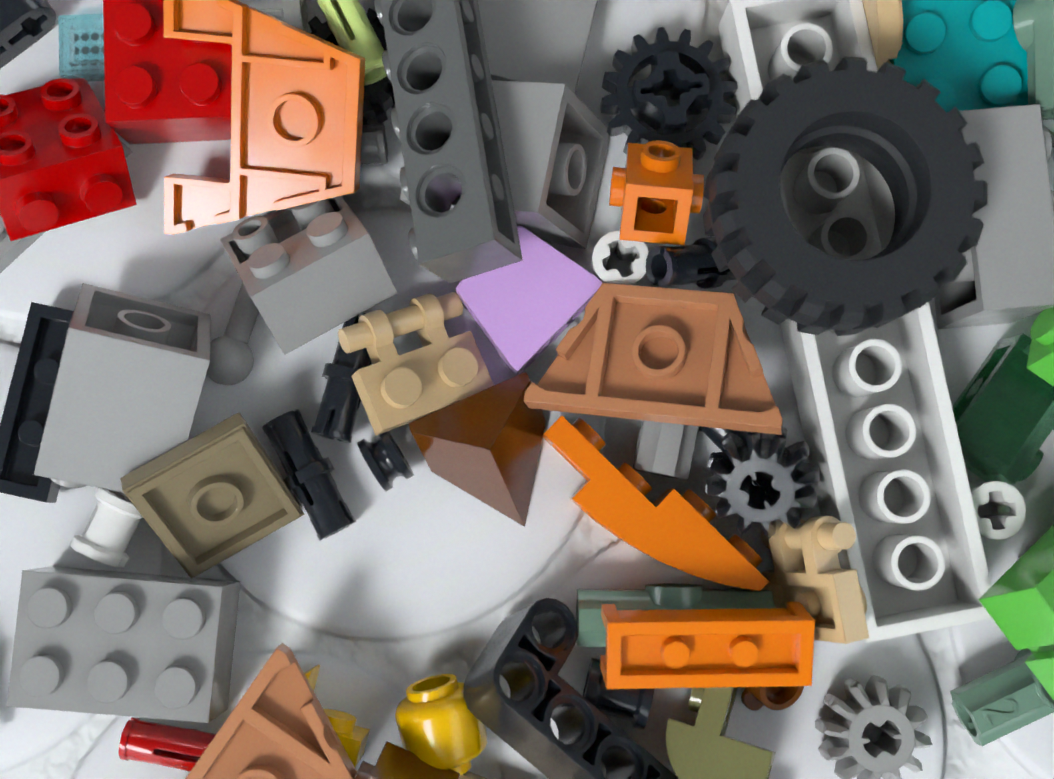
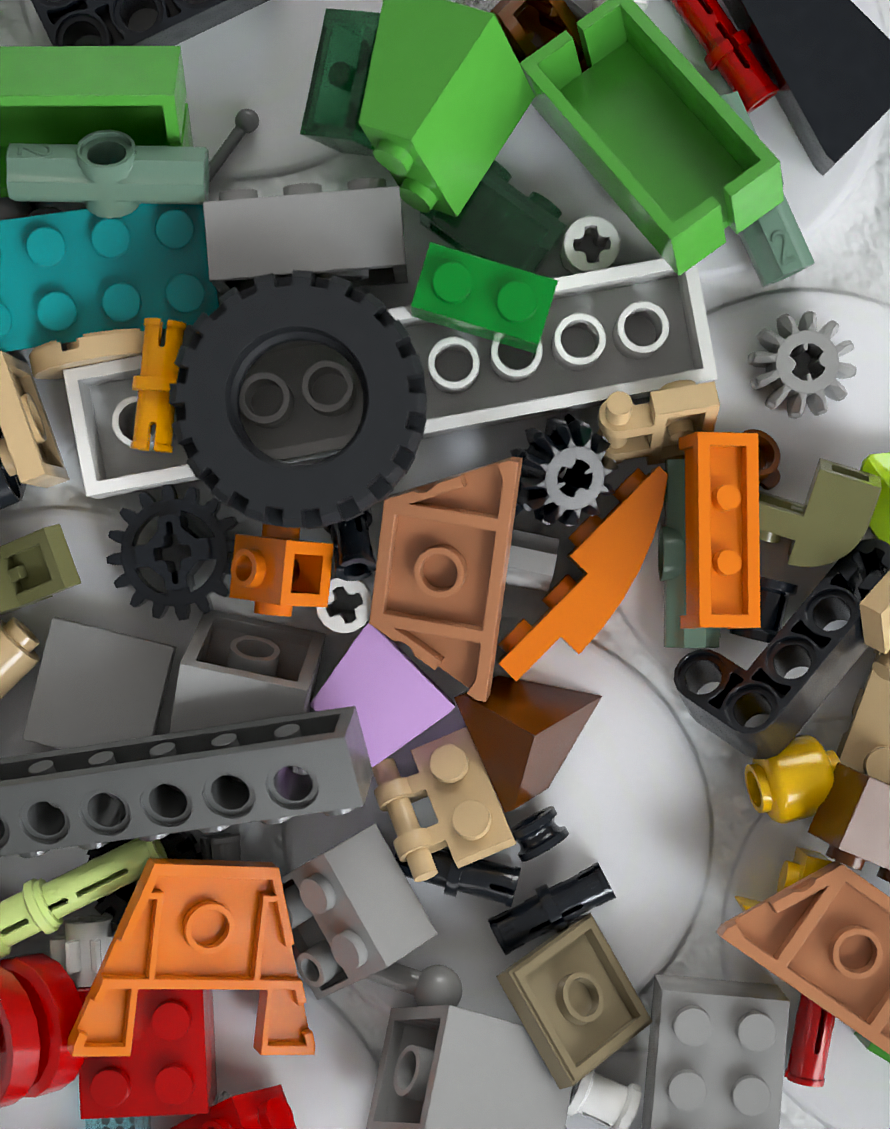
camera: 90 degrees left, 5 degrees up
(797, 52) = (154, 385): none -> light orange pin
(952, 390) = (483, 297): none -> green brick

